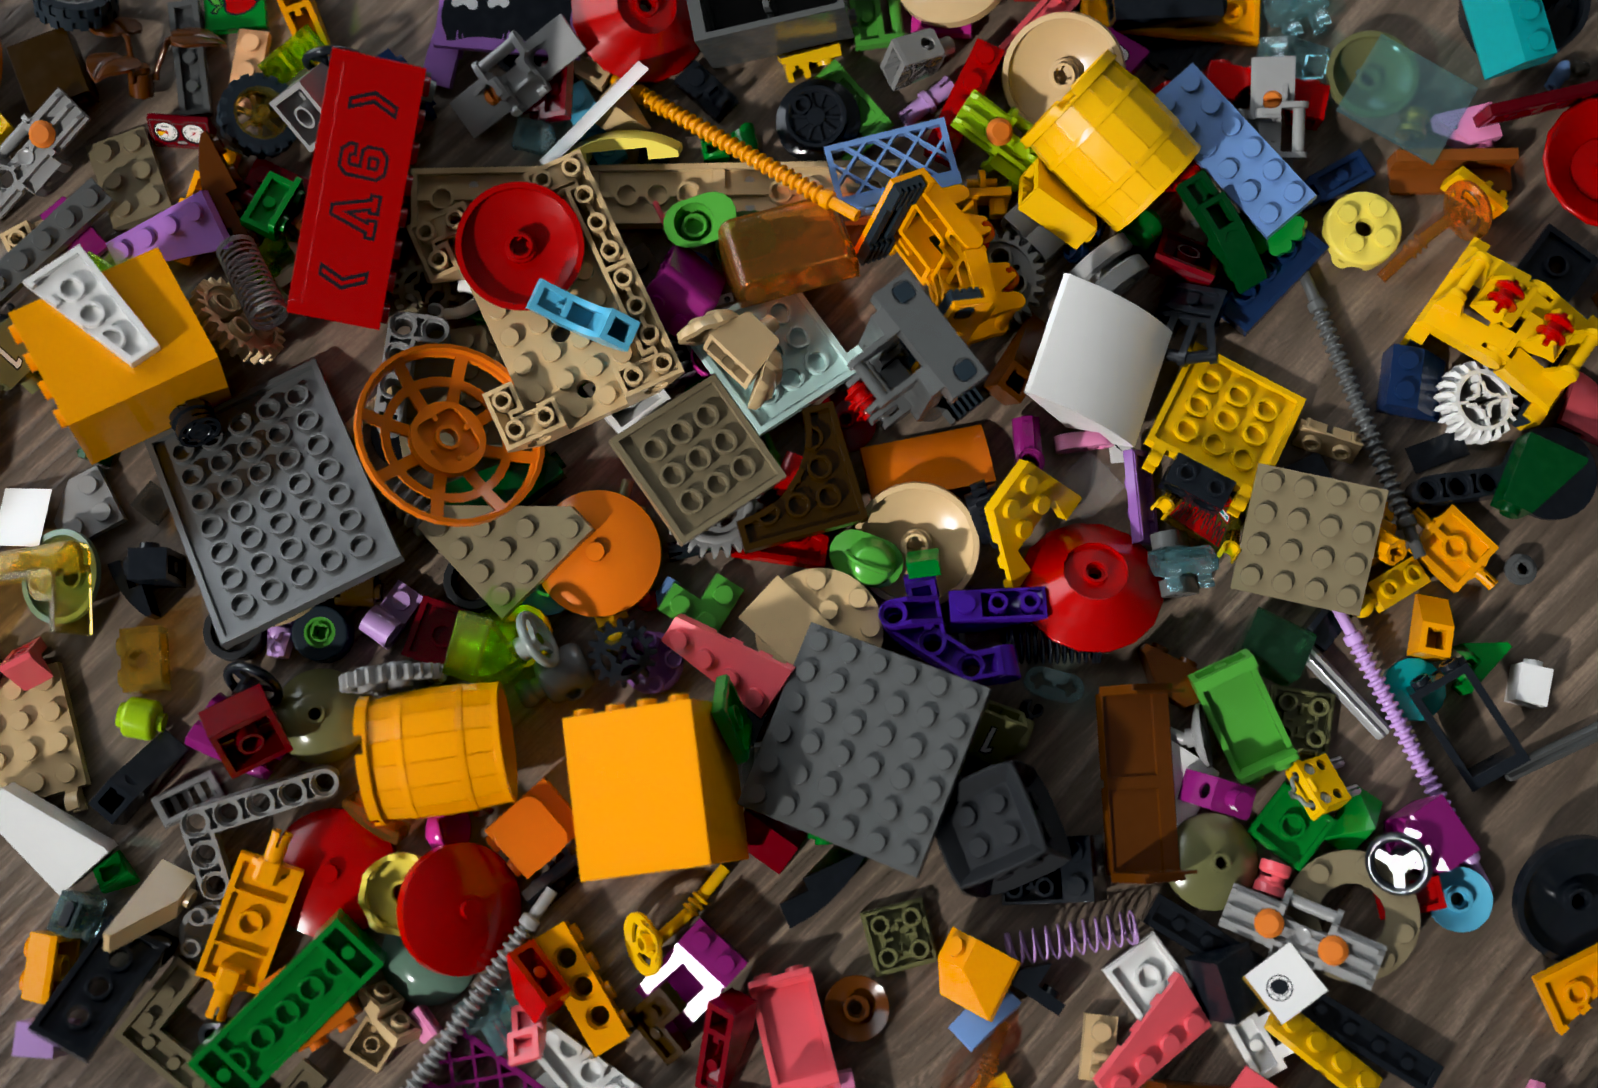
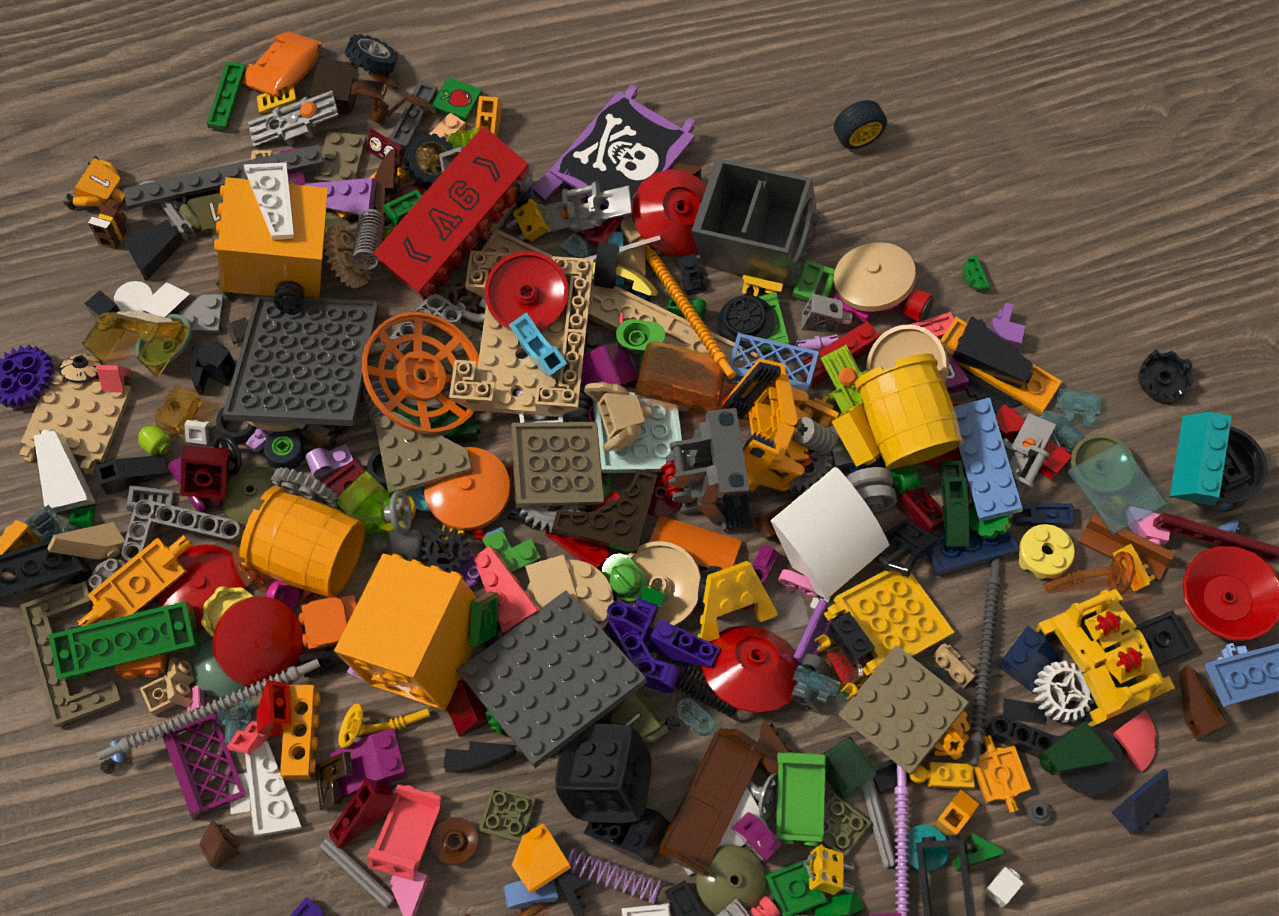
camera: 30 degrees right, 15 degrees down
(190, 674) = (197, 432): none -> white tile
(450, 131) = (530, 221): none -> yellow piece
(597, 145) = (605, 265): none -> black slope
(1009, 240) = (815, 436): none -> light grey piece

